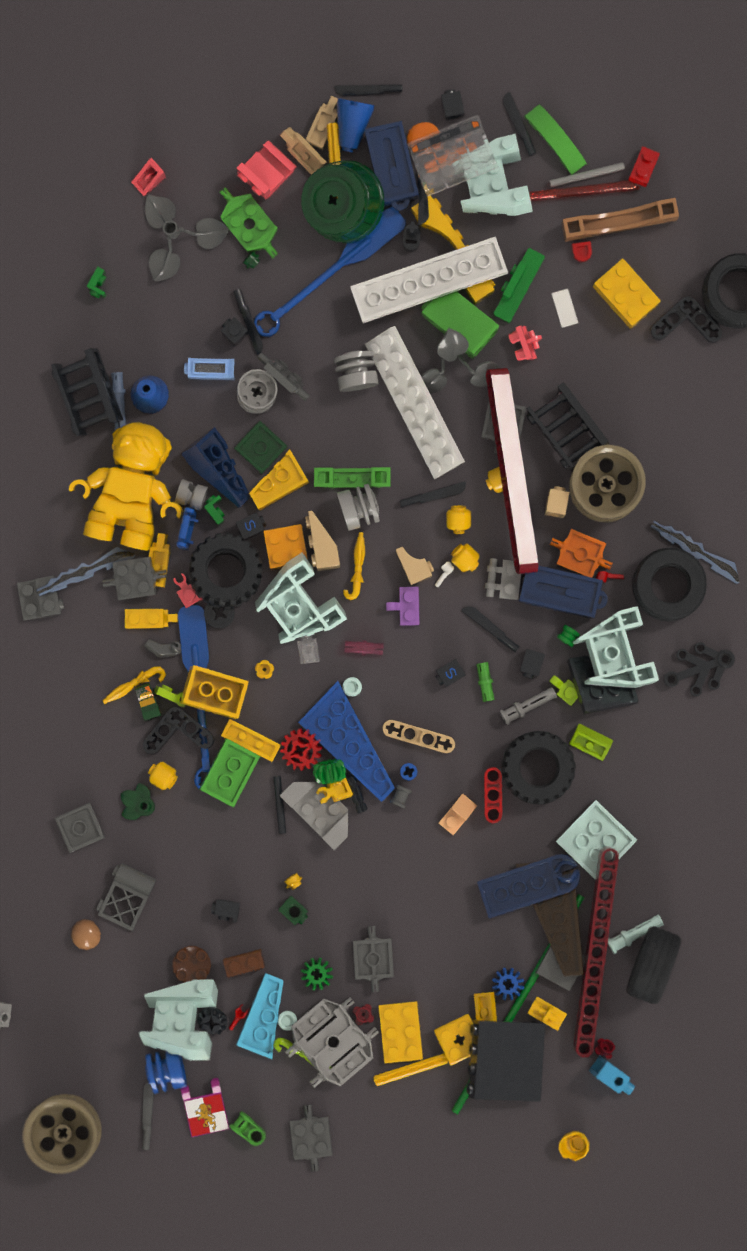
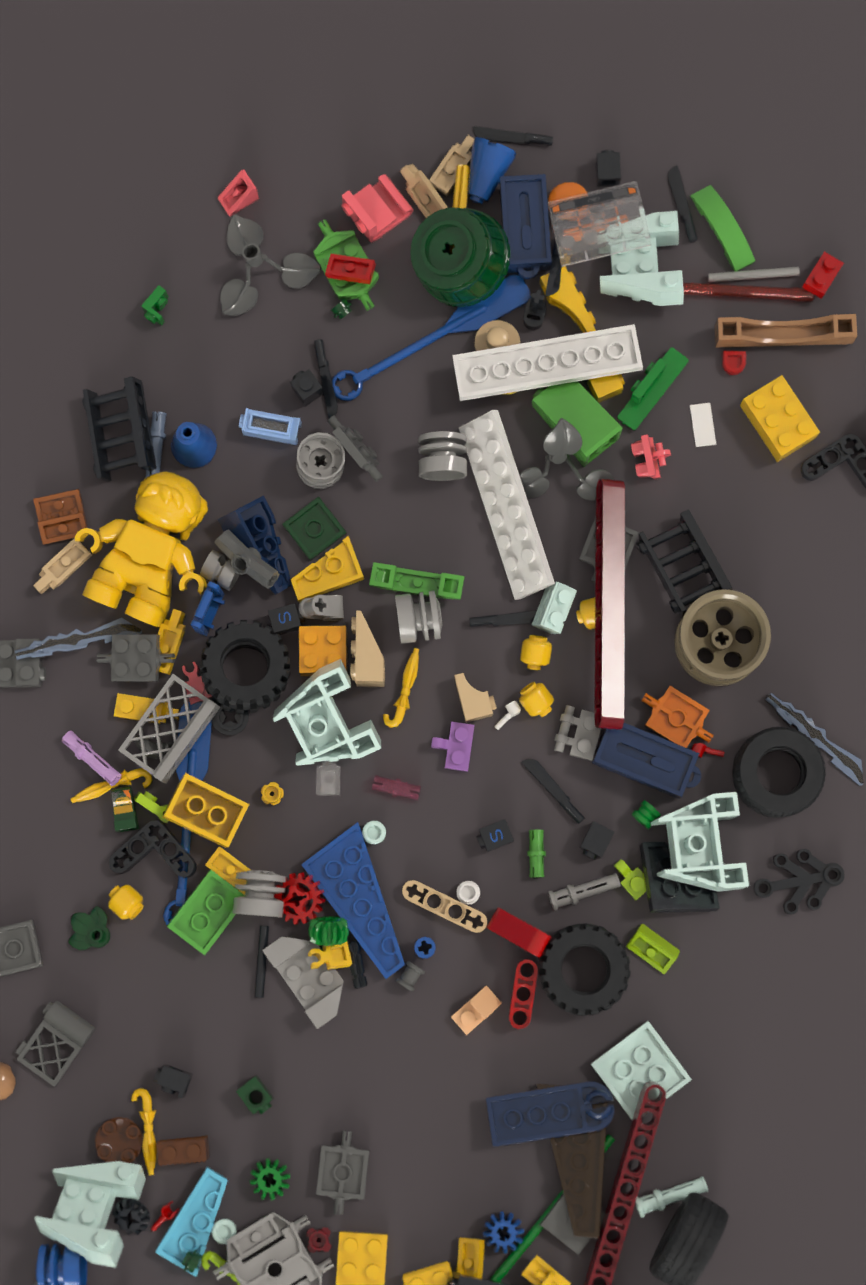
camera: 10 degrees right, 5 degrees down
(51, 471) = (60, 515): none -> dark orange slope
(60, 512) = (62, 566): none -> tan hinge
(110, 663) = (84, 751): none -> lavender pin
(187, 639) = (186, 739): none -> light grey fence
(211, 484) = (246, 560): none -> dark grey piece
(215, 960) = (149, 1143): none -> yellow piece
(216, 513) = (246, 597): green bracket -> none
(253, 226) = (350, 268): none -> red plate
(266, 1047) = (191, 1261): none -> dark green plate
(270, 751) = (259, 894): none -> light grey wheel
(279, 511) = (322, 607): none -> light grey piece
(293, 881) = (261, 1058): yellow plate -> none
(382, 263) = (495, 335): none -> tan plate
(435, 722) = (468, 892): none -> white plate
(467, 481) = (554, 608): none -> light aqua brick
(481, 747) = (518, 932): none -> red beam
(557, 502) = (658, 651): tan brick -> none

